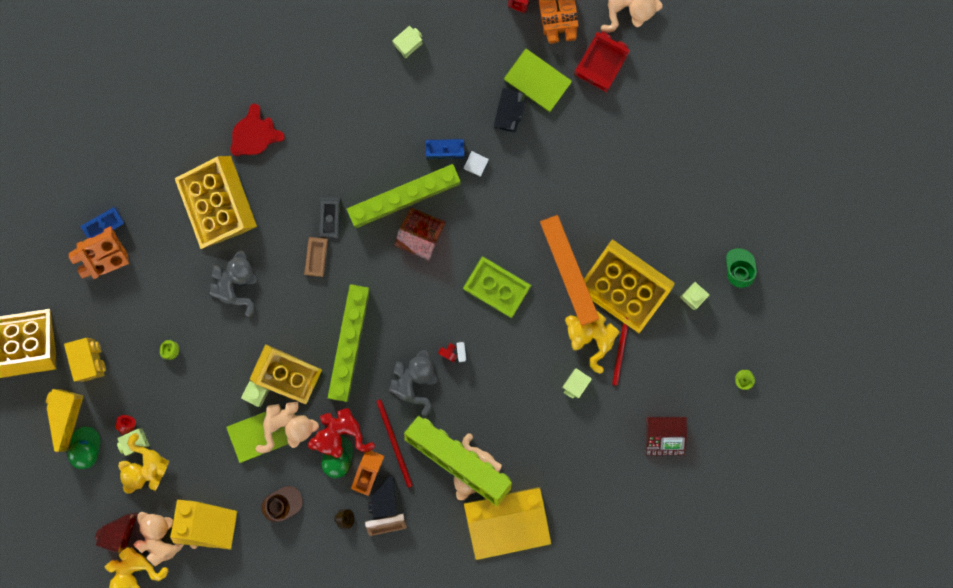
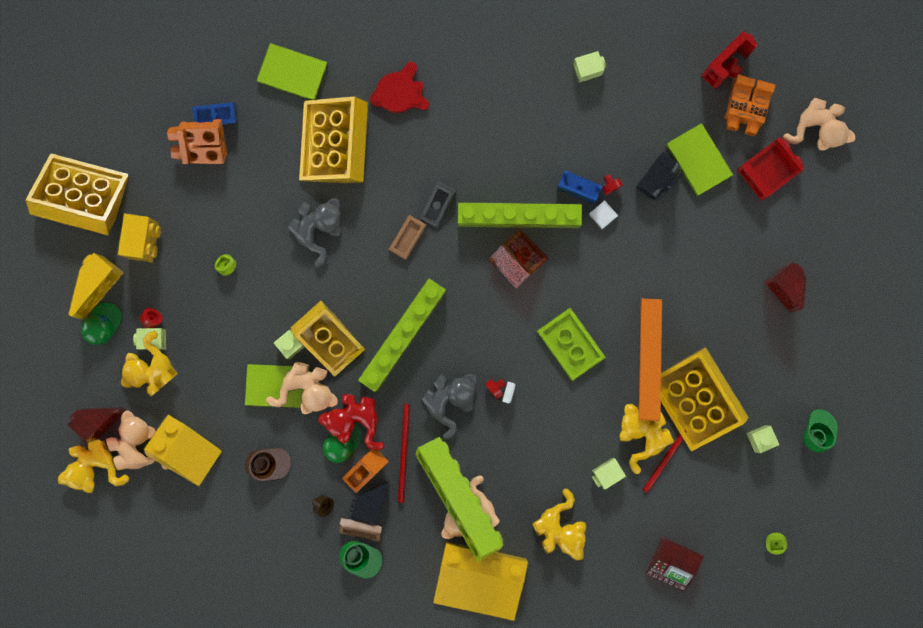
camera: 25 degrees right, 0 degrees up
(153, 158) = (292, 72): none -> lime tile
(397, 550) = (360, 559): none -> green cap
(471, 135) = (611, 185): none -> red tile
(567, 452) = (569, 538): none -> yellow animal
(659, 156) = (789, 286): none -> clear red slope

